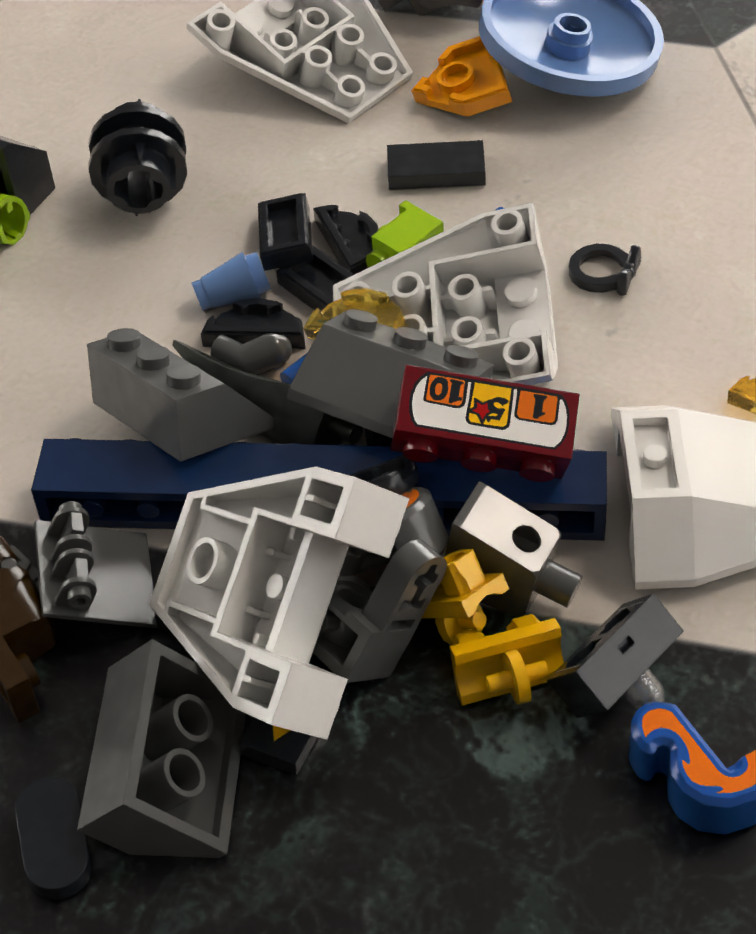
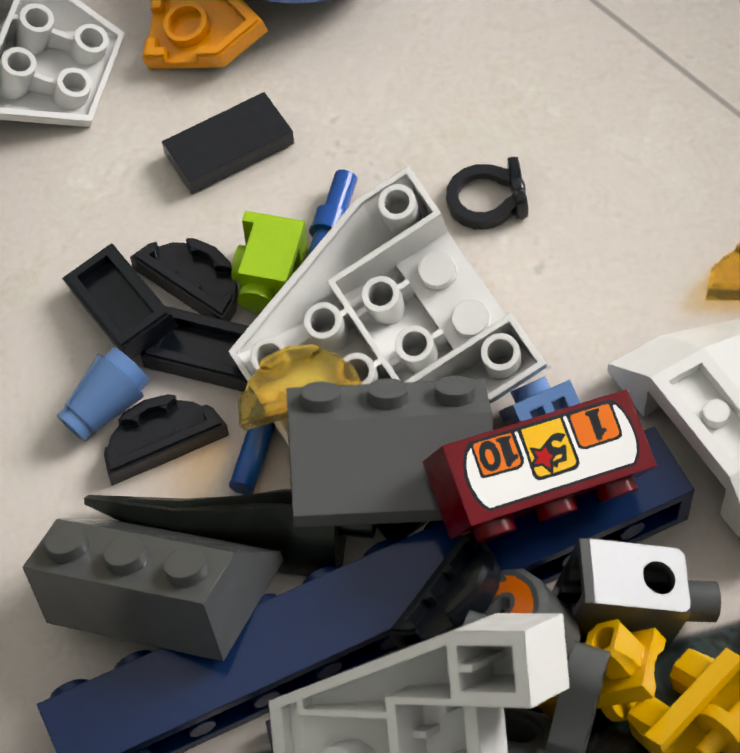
camera: 30 degrees left, 10 degrees up
(255, 355) = (185, 476): dark grey arm -> none

